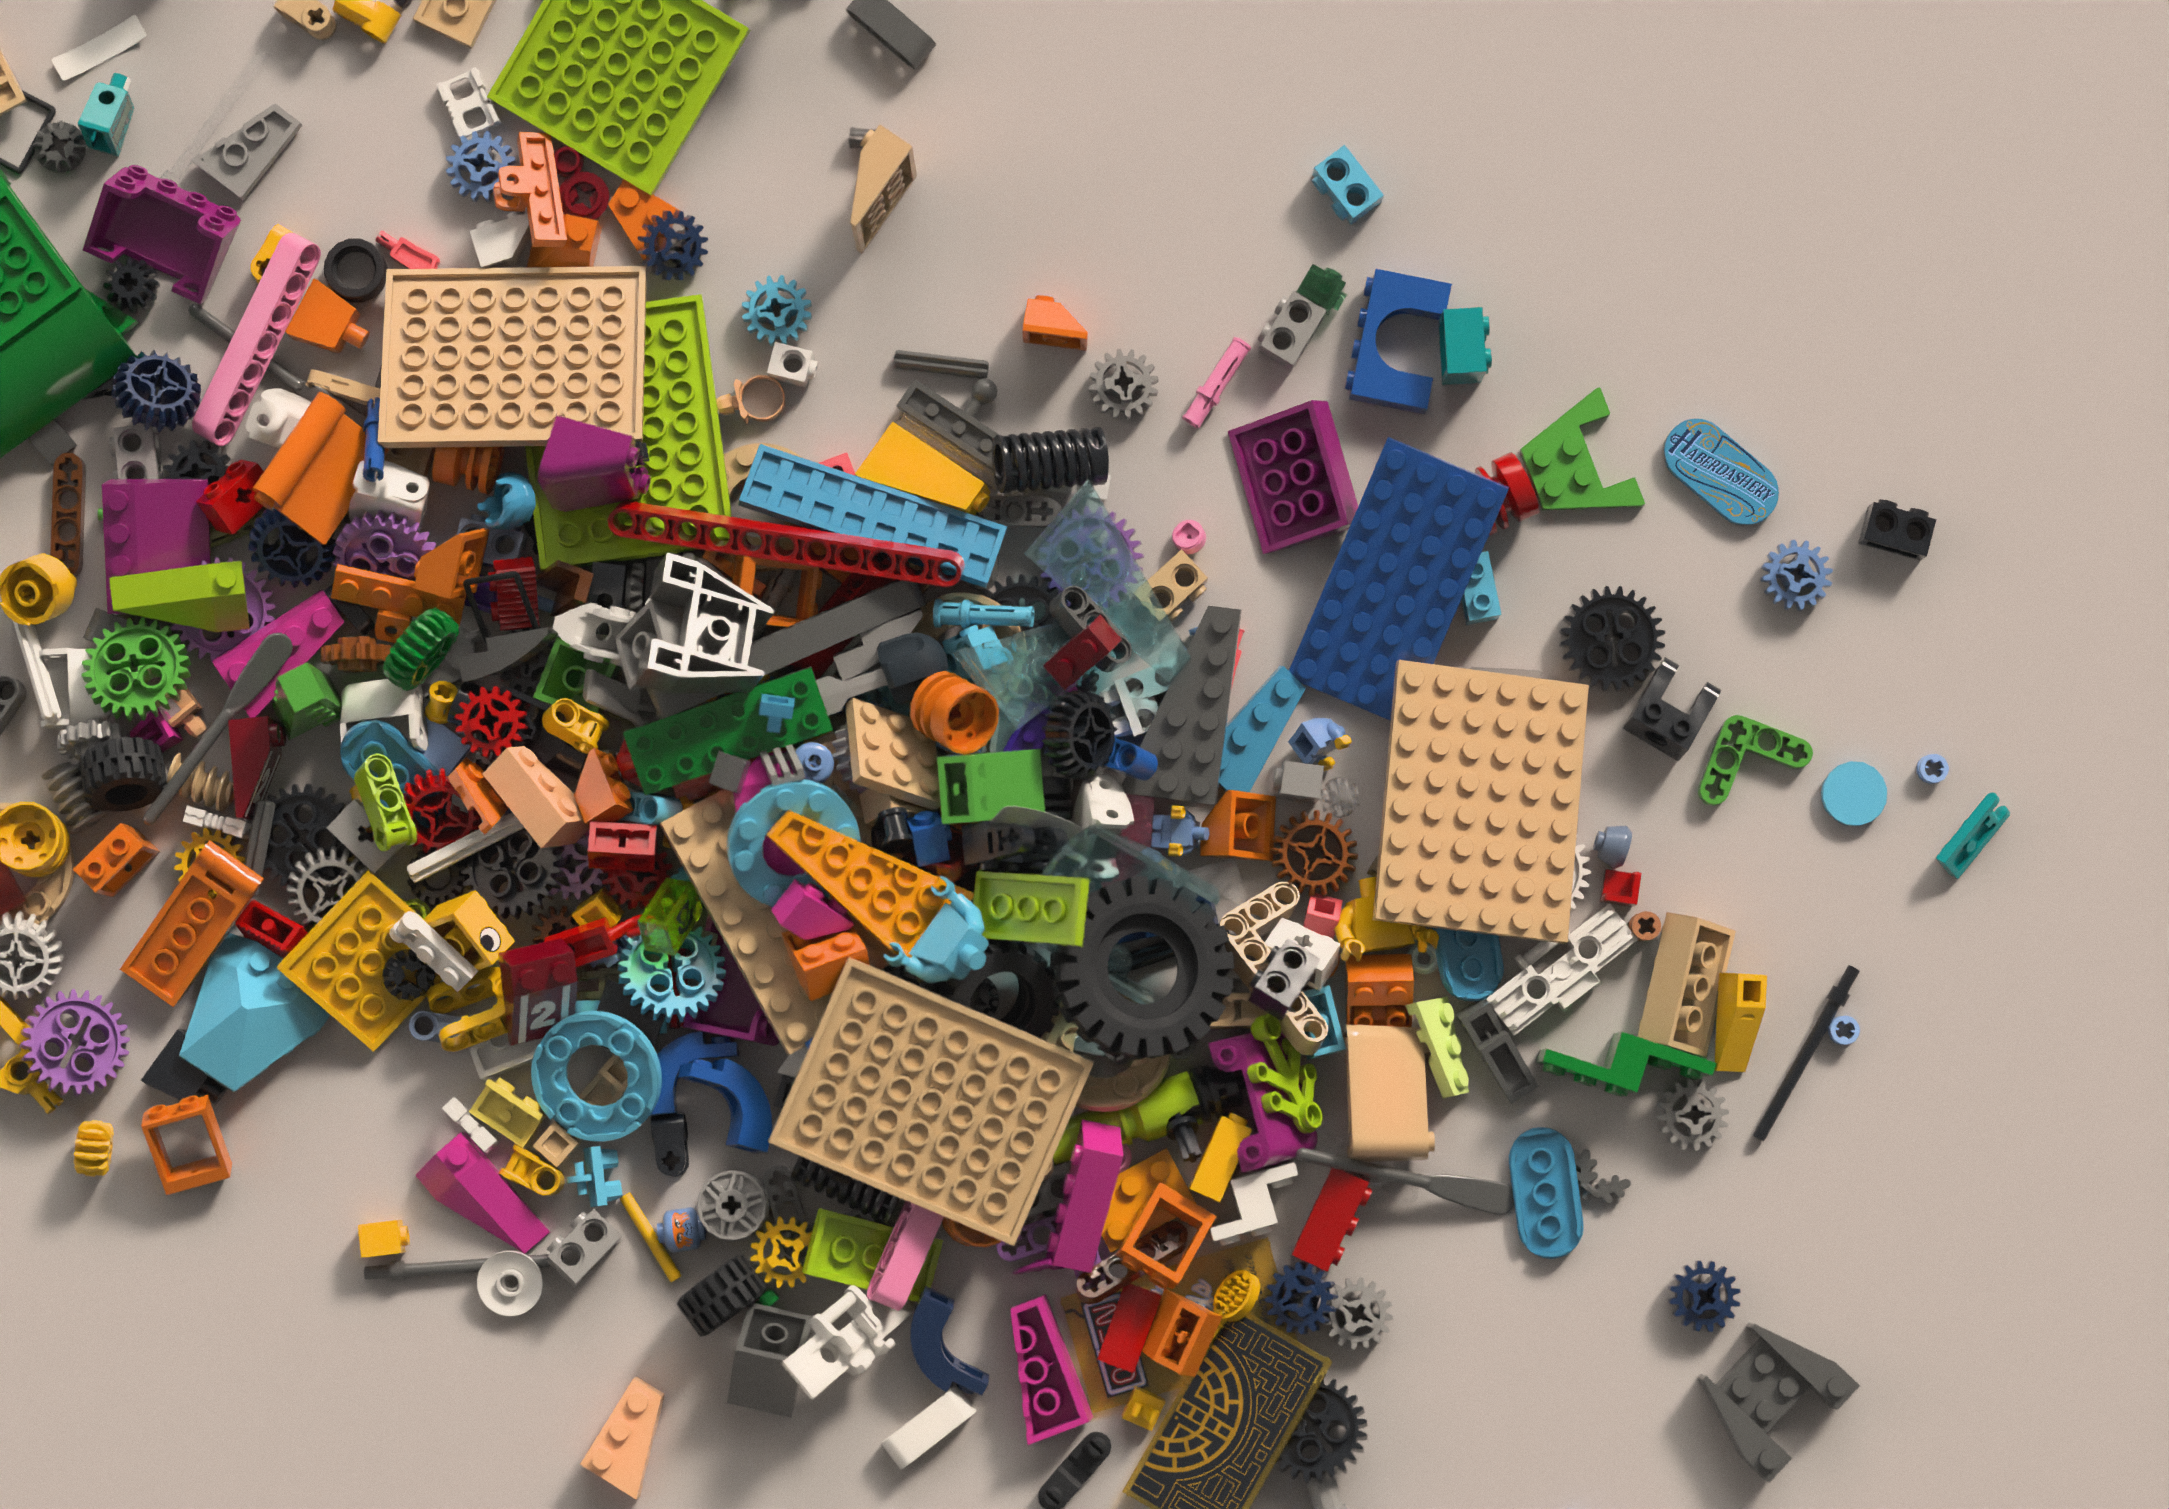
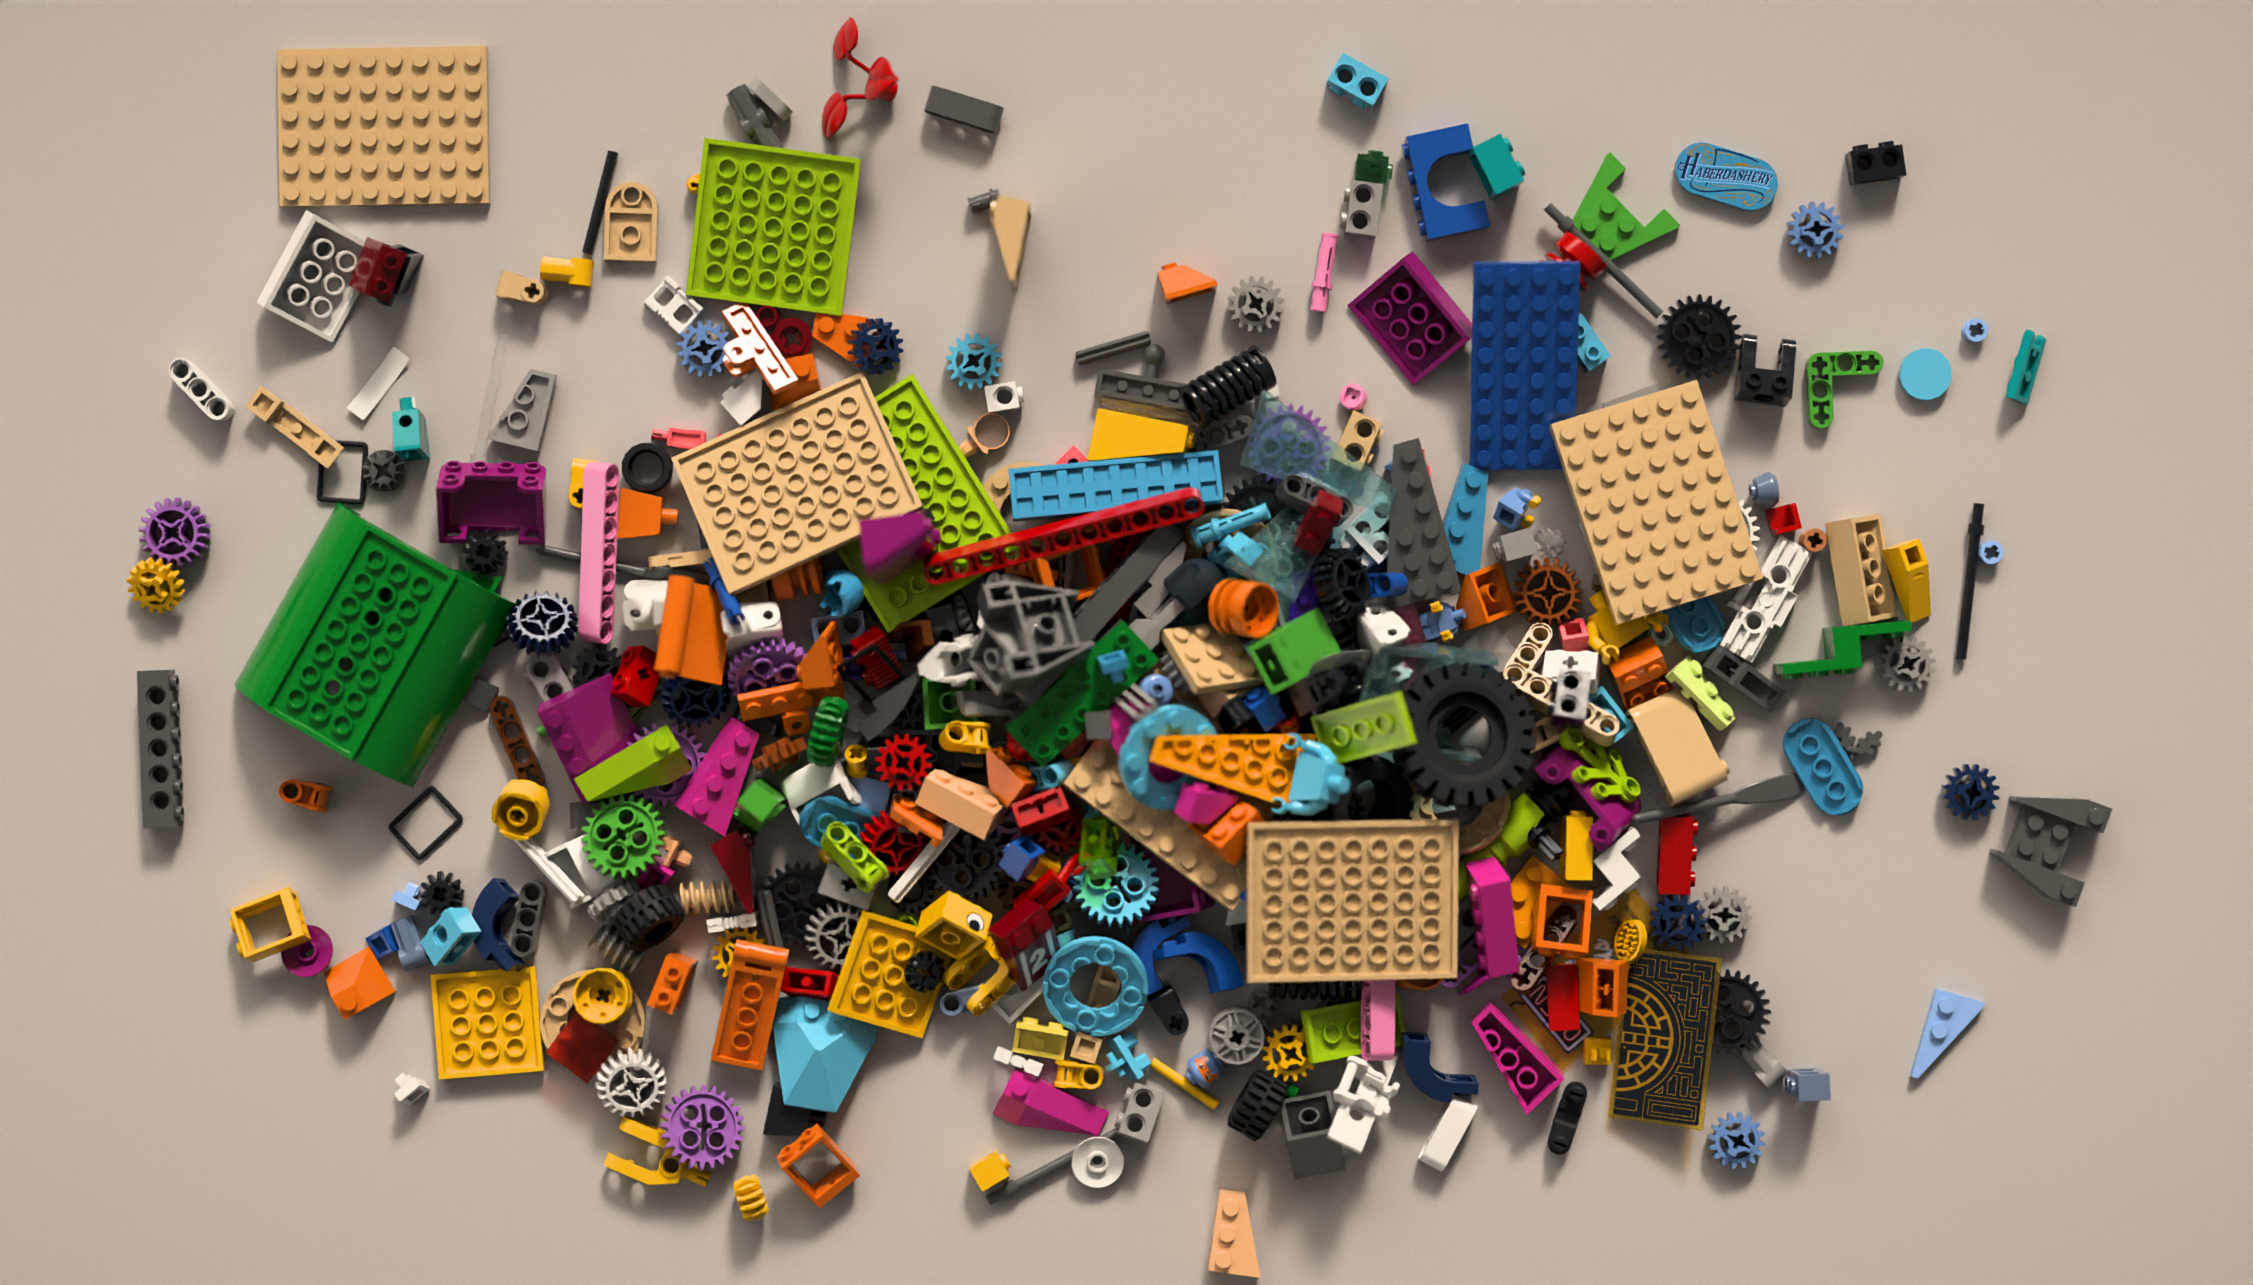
camera: 20 degrees left, 5 degrees up
(254, 677) = (713, 807): dark grey piece -> none
(433, 950) = (936, 947): white plate -> none
(575, 889) = (1021, 857): none -> blue brick
(1516, 445) = (1567, 224): none -> dark grey bar

